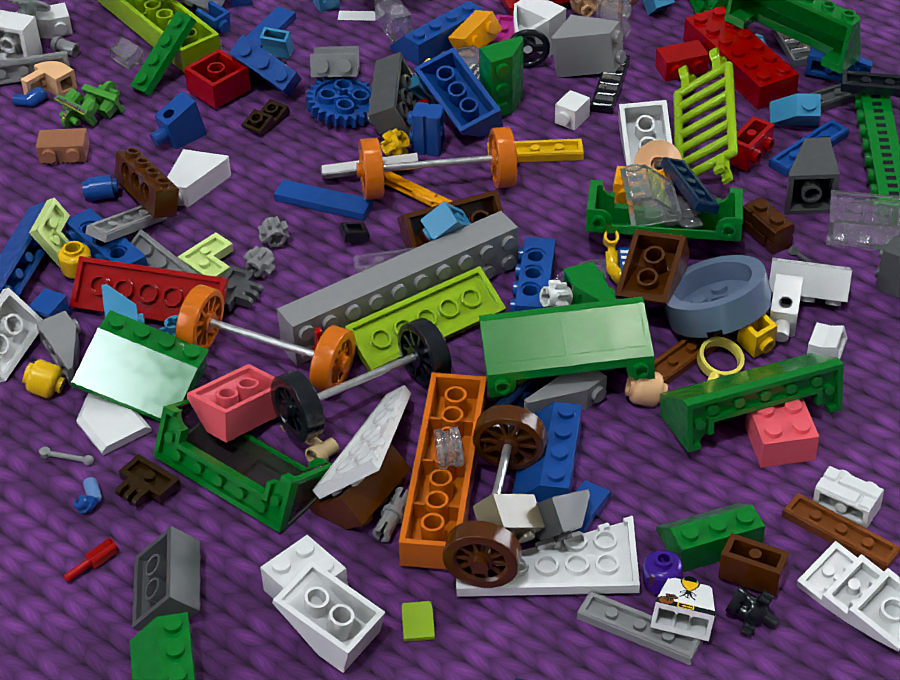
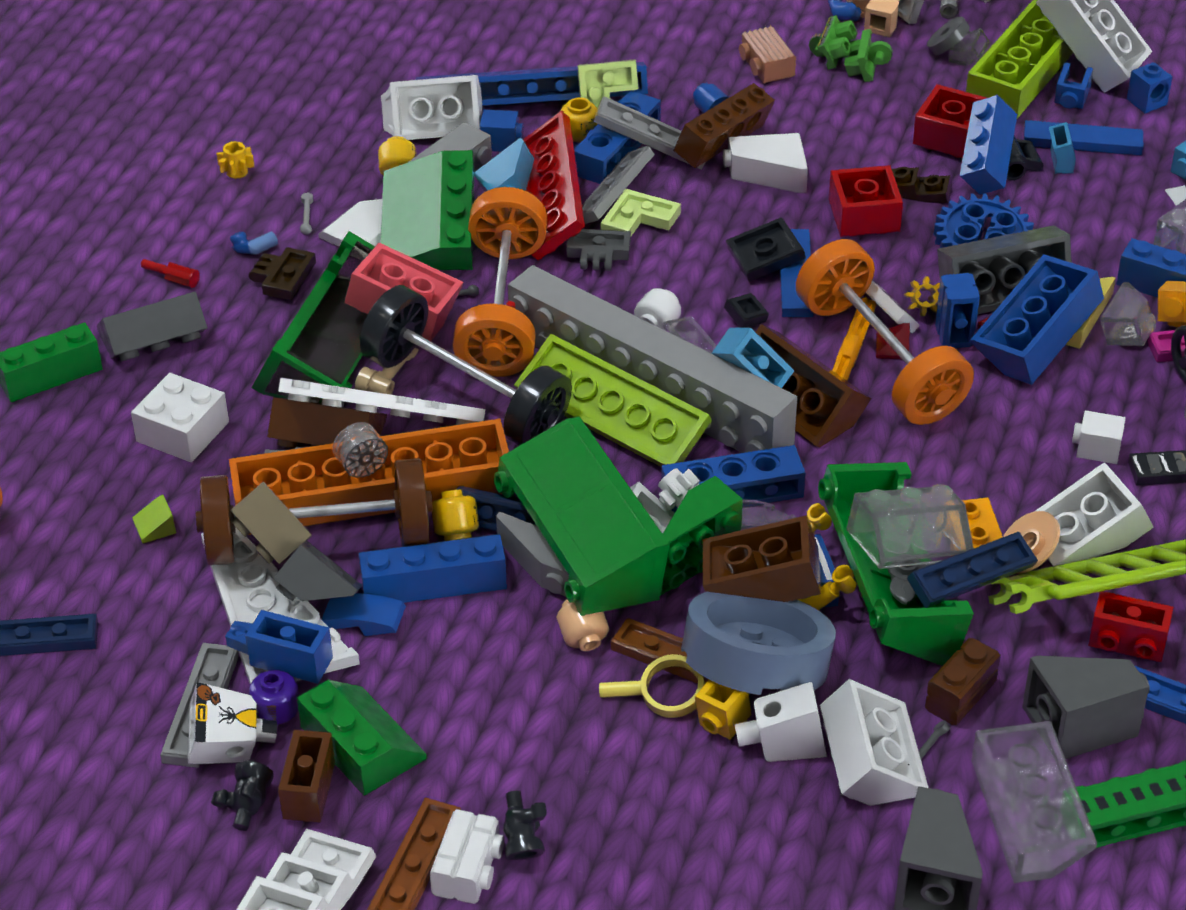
camera: 70 degrees right, 0 degrees up
(114, 54) = (948, 35): none -> dark grey piece
(163, 53) = (962, 61): green plate -> none
(178, 122) = (850, 118): blue torso -> none
(259, 261) = (648, 249): light grey gear -> none
(273, 232) = (705, 245): light grey gear -> none
(278, 140) = (865, 200): none -> red brick
(295, 203) = (765, 249): none -> black tile
(329, 615) = (119, 440): white slope -> none
(333, 269) = (658, 306): none -> white head
(335, 61) = (1058, 206): light grey panel -> none
(427, 176) = (884, 350): none -> dark red slope
(503, 72) = (1093, 341): green slope -> none
(548, 150) = (1004, 430): yellow tile -> none
(629, 544) = (283, 645): none -> blue hinge
(695, 408) = (617, 731): green windscreen -> none
(782, 434) = (555, 765): coral brick -> none
(827, 340) = (758, 790): white piece -> none
(837, 456) = (521, 826): none -> black piece

